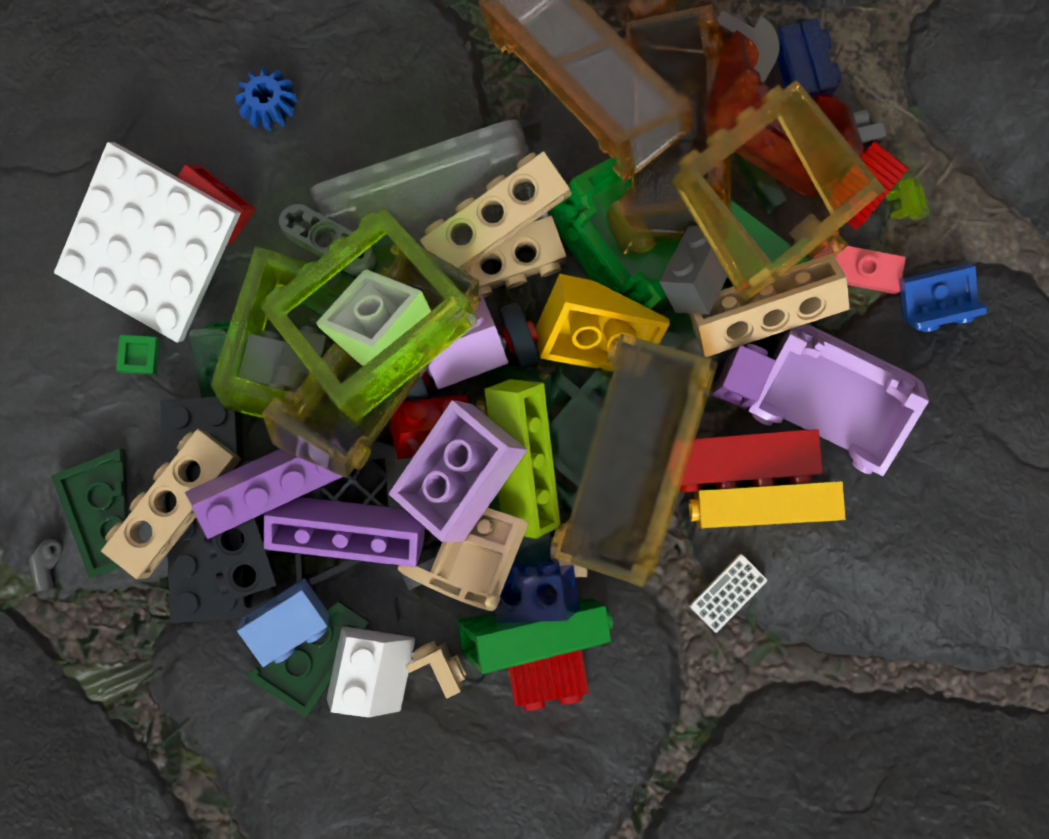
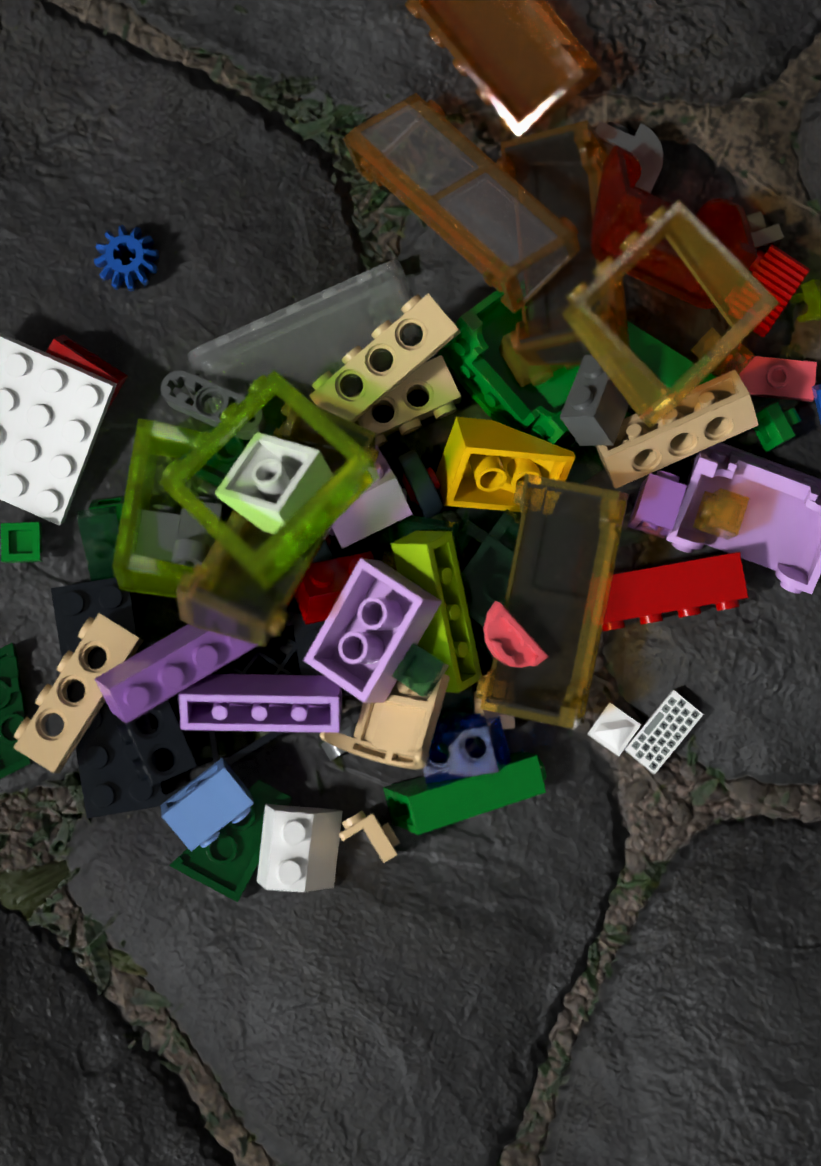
camera: 10 degrees left, 0 degrees up
(500, 515) = (420, 671): none -> clear green plate
(549, 679) = (485, 837): red brick -> none
(589, 493) = (509, 640): none -> coral tile
(681, 586) = (613, 729): none -> white tile
(761, 184) = (661, 303): clear green plate -> none
(768, 505) = (694, 636): yellow slope -> none
(803, 390) = (721, 513): none -> clear yellow brick
(806, 57) = (694, 165): clear blue brick -> none
(862, 313) = (775, 426): none -> green tile

